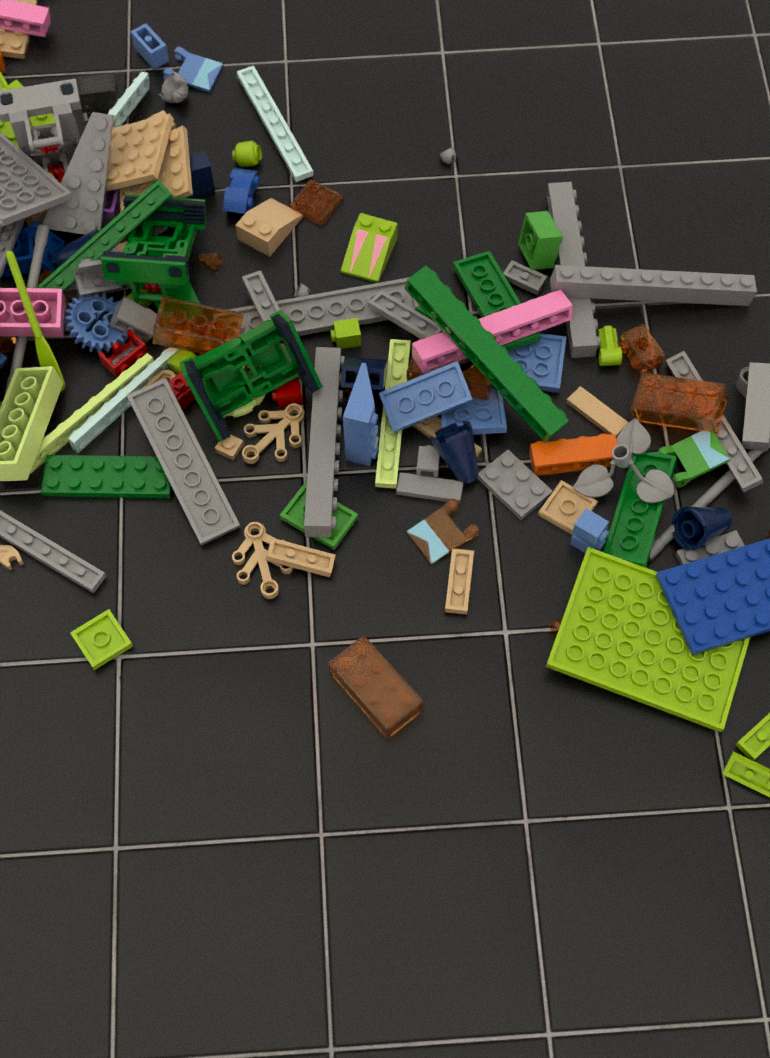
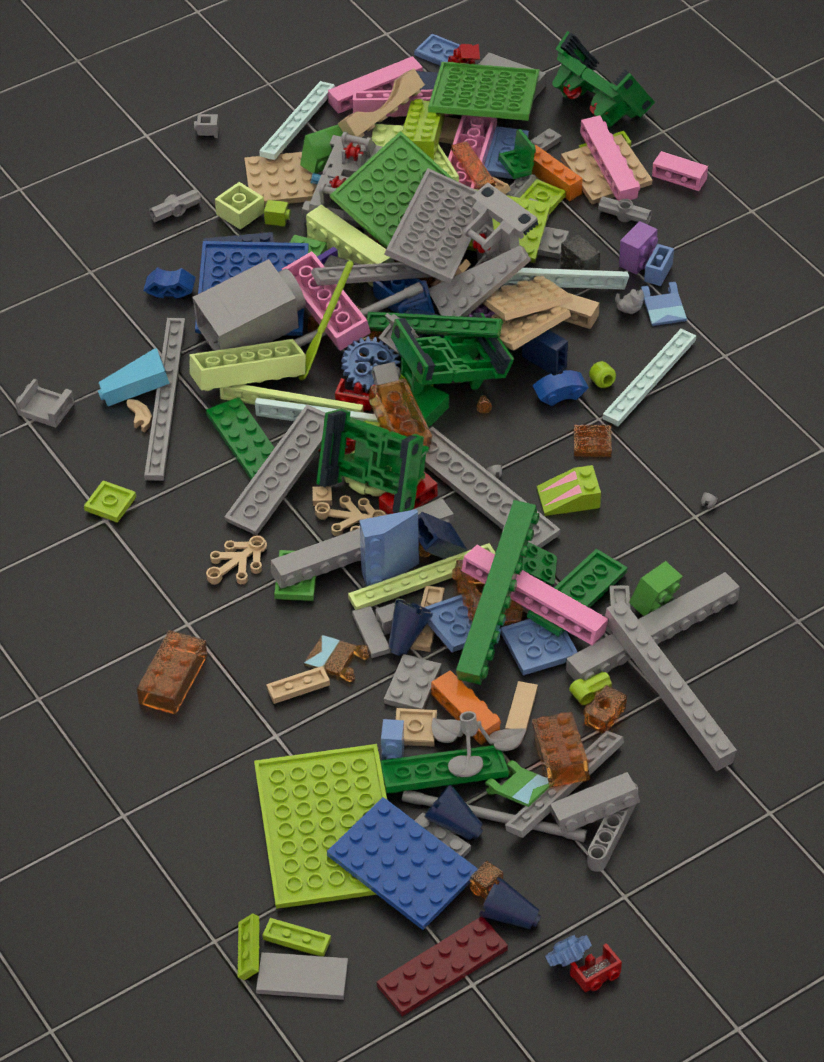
camera: 60 degrees right, 15 degrees down
(58, 37) = (625, 210): none -> light grey piece
(119, 48) = (637, 247): none -> medium lavender brick
(260, 295) = (458, 452): light grey plate -> none
(267, 225) = (544, 420): tan slope -> none
(300, 557) = (251, 578): tan plate -> none
(346, 333) = (475, 515): lime brick -> none
(426, 397) = (440, 581): medium blue plate -> none

